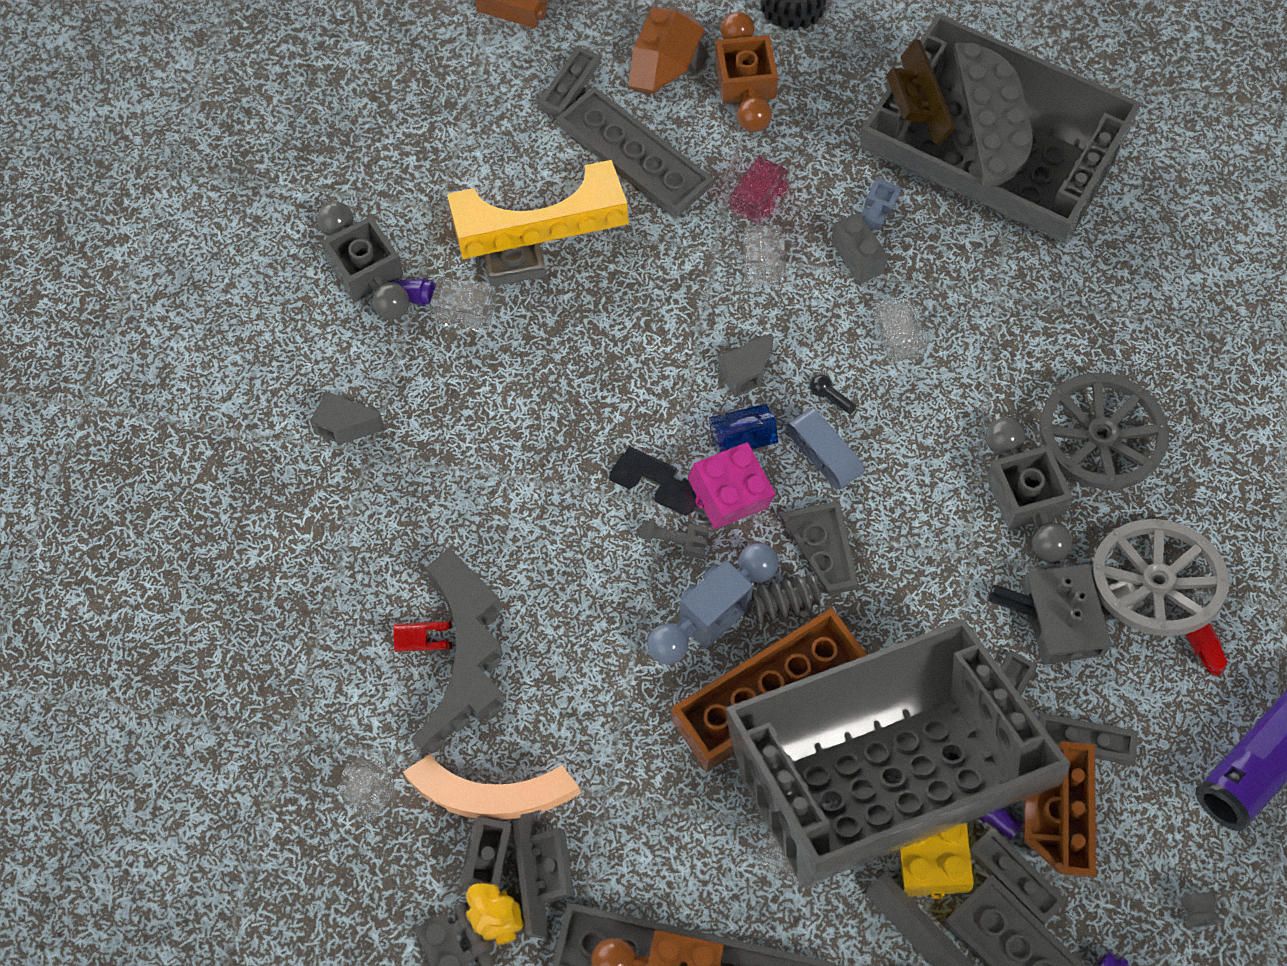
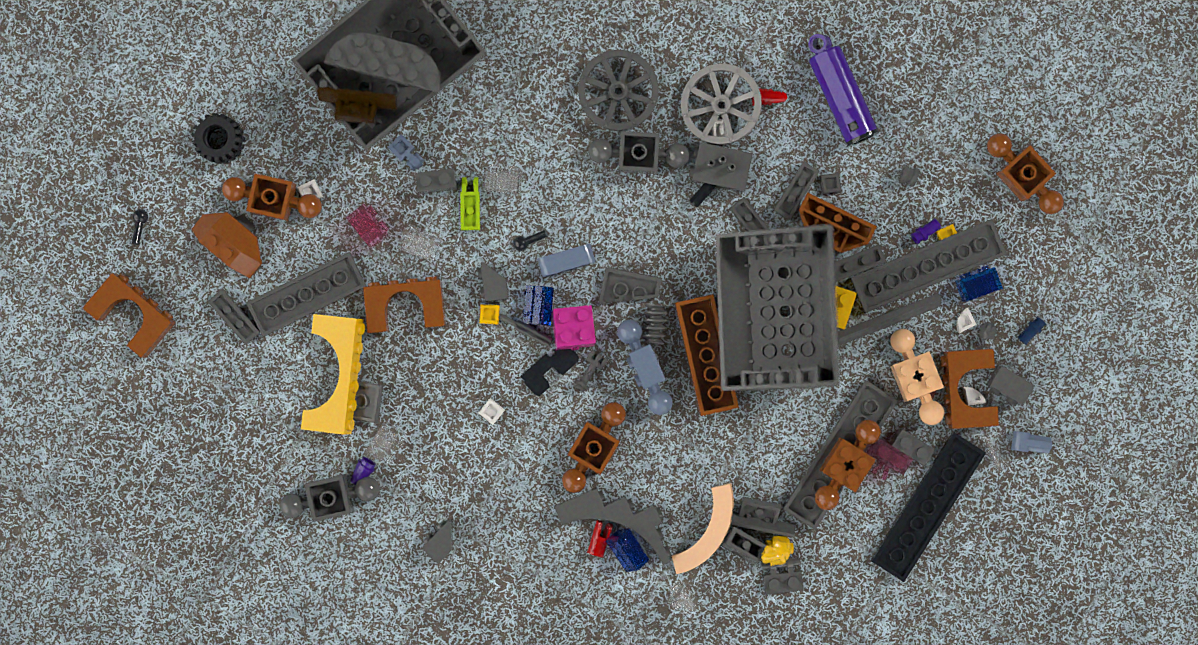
camera: 75 degrees left, 25 degrees up
(417, 677) = (627, 550): none -> clear blue brick
(543, 579) = (612, 415): none -> dark orange brick
(562, 426) = (491, 411): none -> white tile
(669, 233) = (378, 297): none -> dark orange arch
(699, 431) = (528, 330): none -> dark grey axle
(702, 378) = (489, 314): none -> yellow tile
(780, 116) = (310, 188): none -> white tile
(843, 302) = (470, 206): none -> lime hinge
(1123, 791) = (830, 183): none -> dark grey tile

